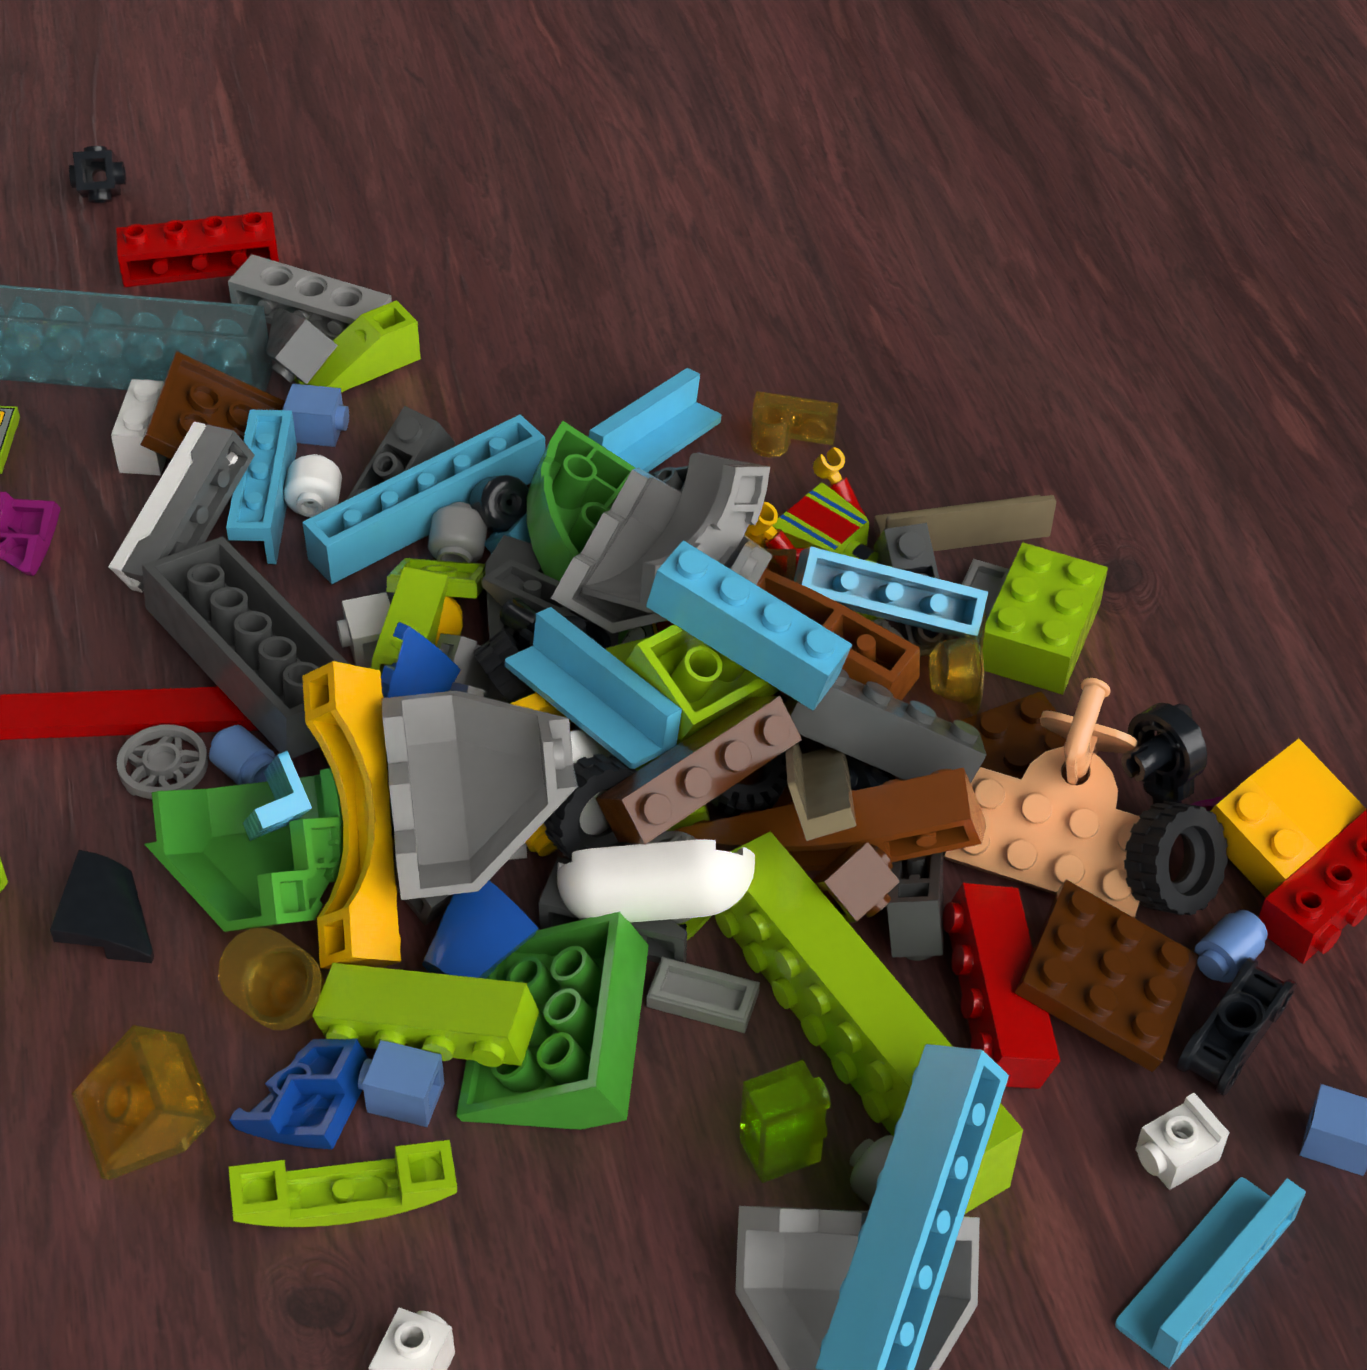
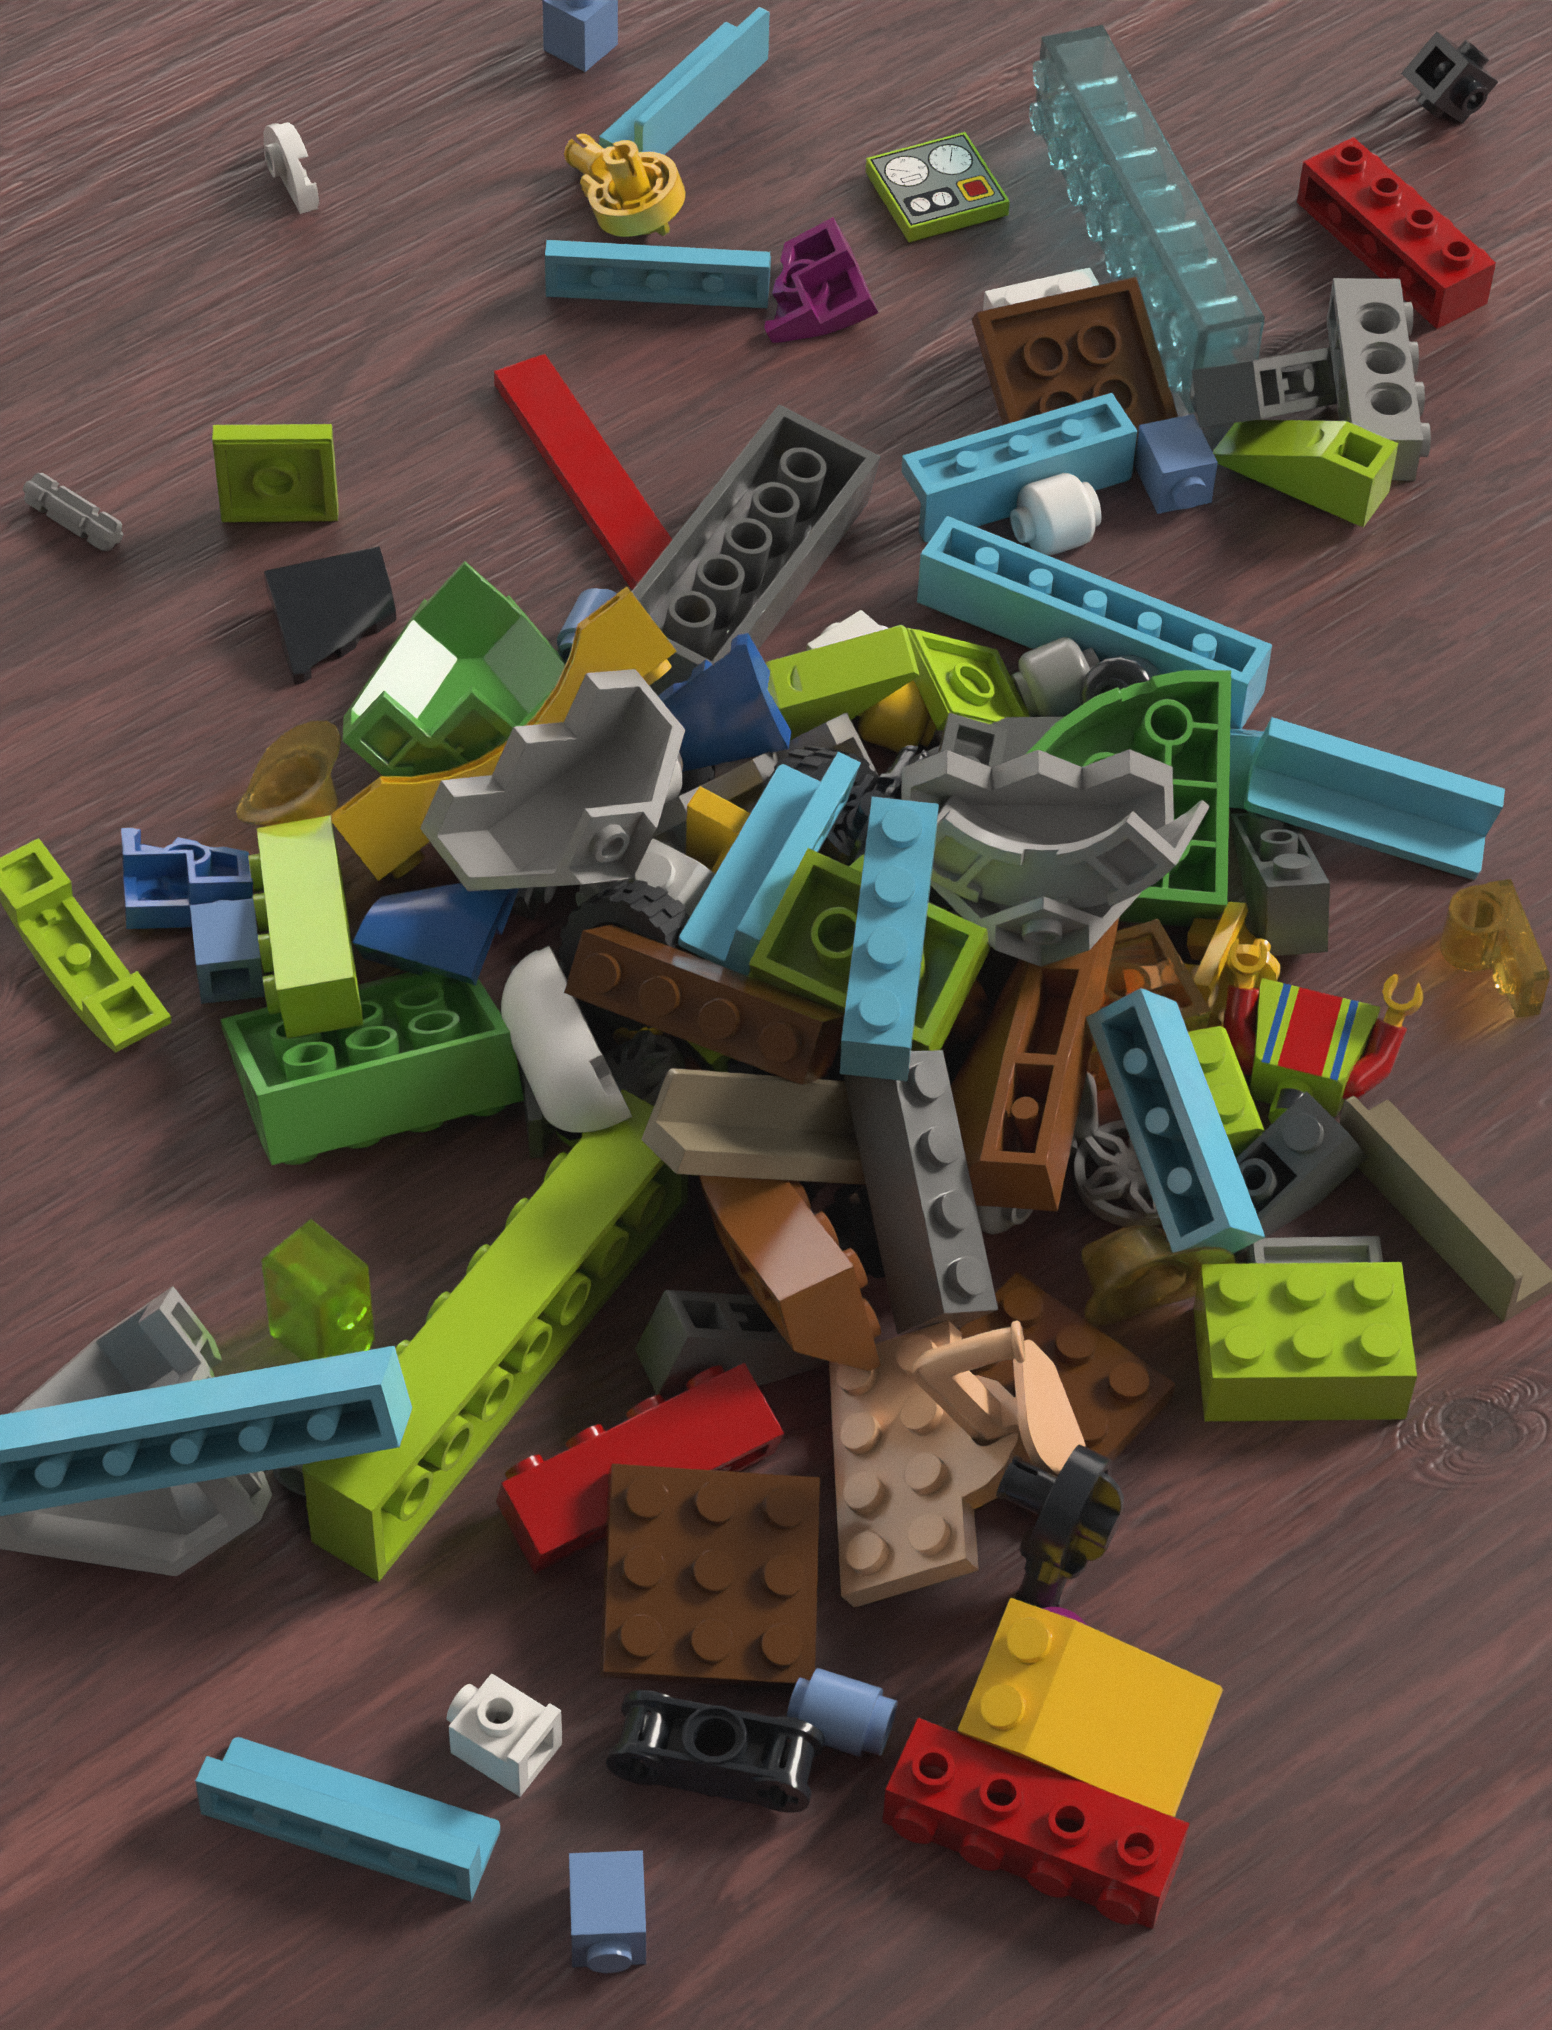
camera: 65 degrees right, 5 degrees up
(143, 1102) = (105, 747): clear yellow slope -> none
(162, 760) = (557, 567): light grey wheel -> none
(184, 500) = (918, 399): dark grey piece -> none
(289, 795) = (484, 653): medium azure panel -> none
(407, 444) = (1170, 567): dark grey slope -> none
(703, 994) = (491, 1178): light grey tile -> none
(858, 881) = (661, 1241): brick -> none
(1150, 851) = (893, 1635): black tyre -> none

